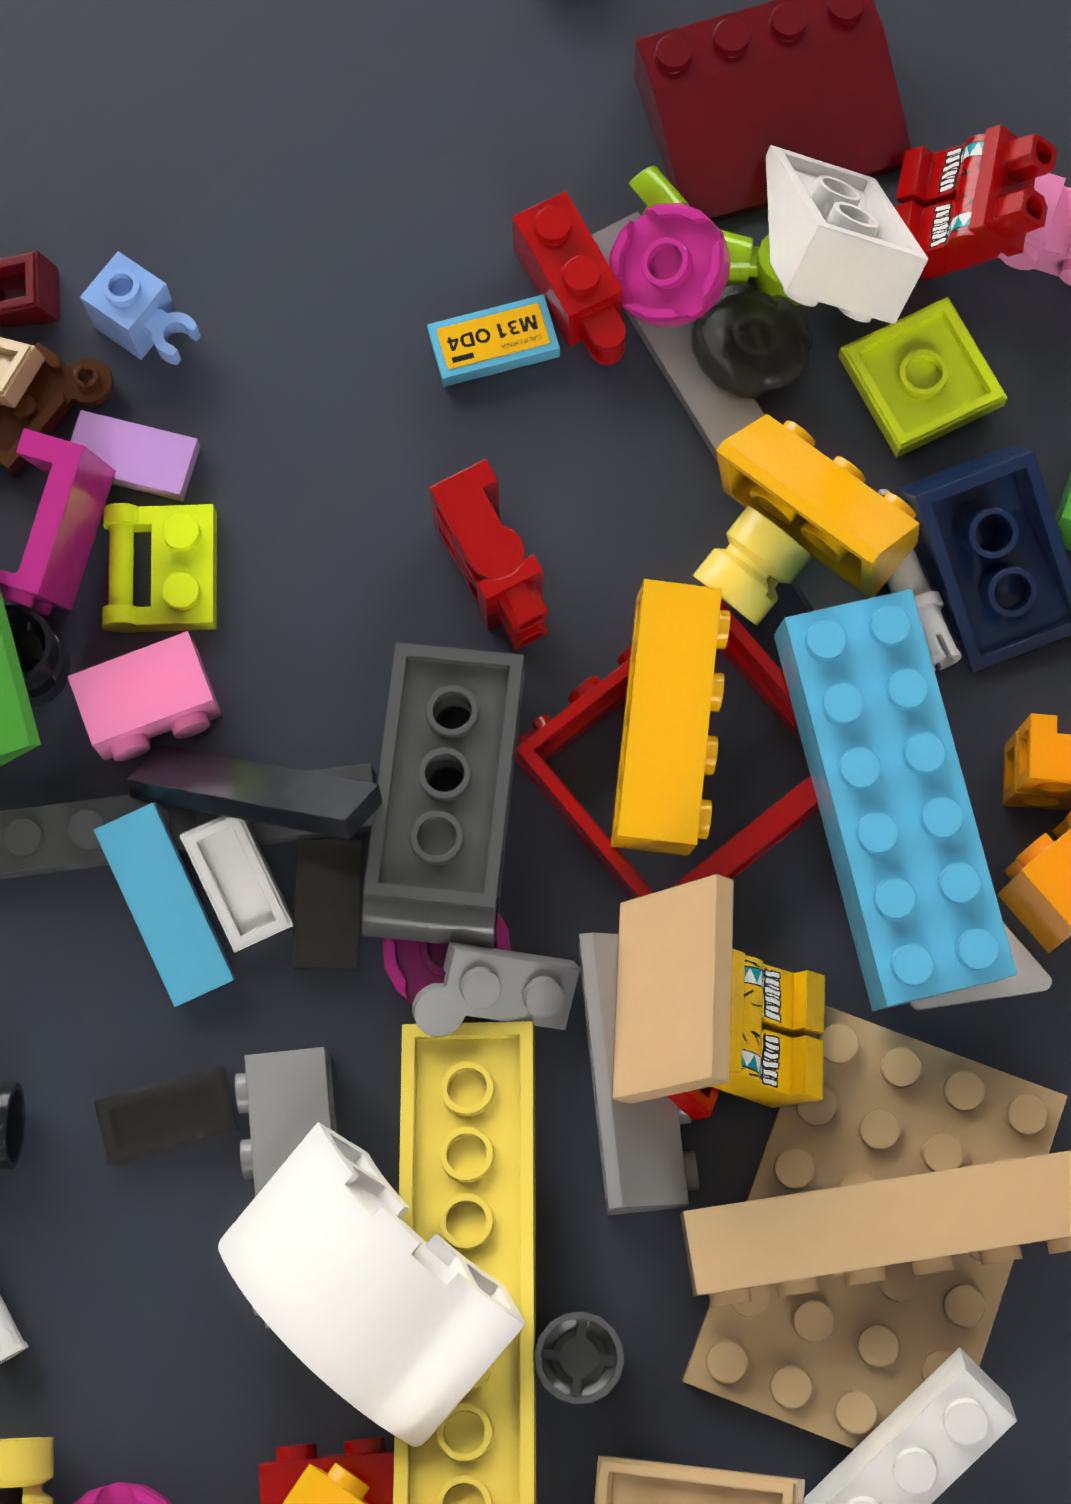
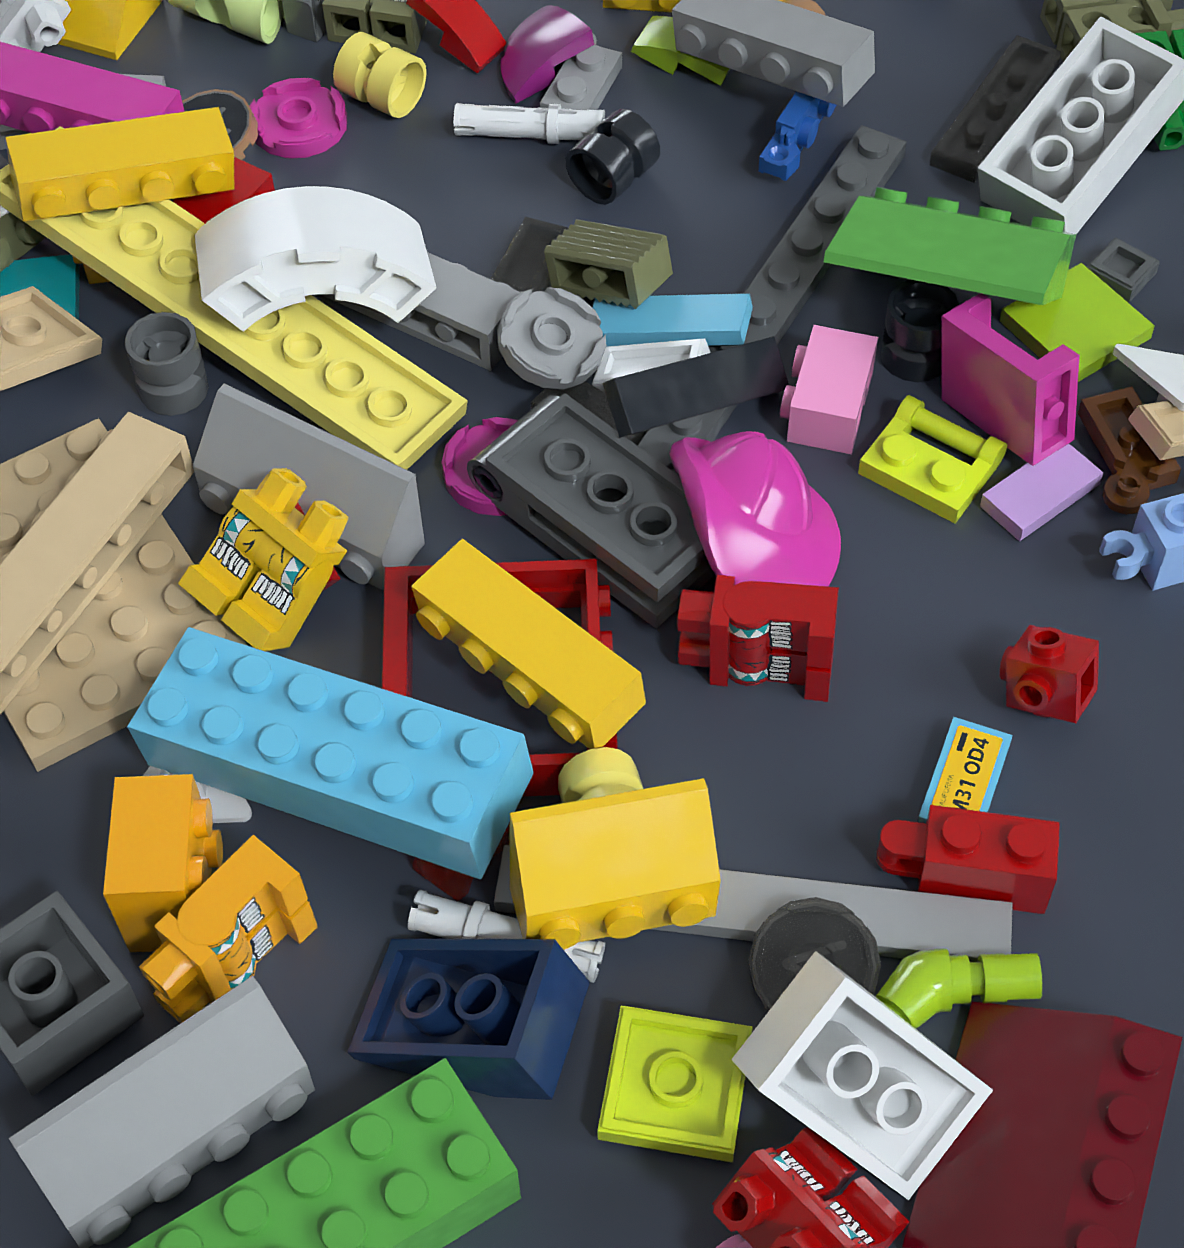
camera: 125 degrees right, 20 degrees down
(133, 1008) = (608, 262): none -> olive brick
(278, 988) = (551, 338): none -> light grey tile
(352, 318) = (1051, 673): none -> red brick
(357, 653) = (757, 510): none -> dark pink piece
(496, 987) = (446, 448): light grey hinge -> none
(670, 265) = (927, 925): dark pink tile -> none
(674, 991) = (318, 487): tan tile -> none

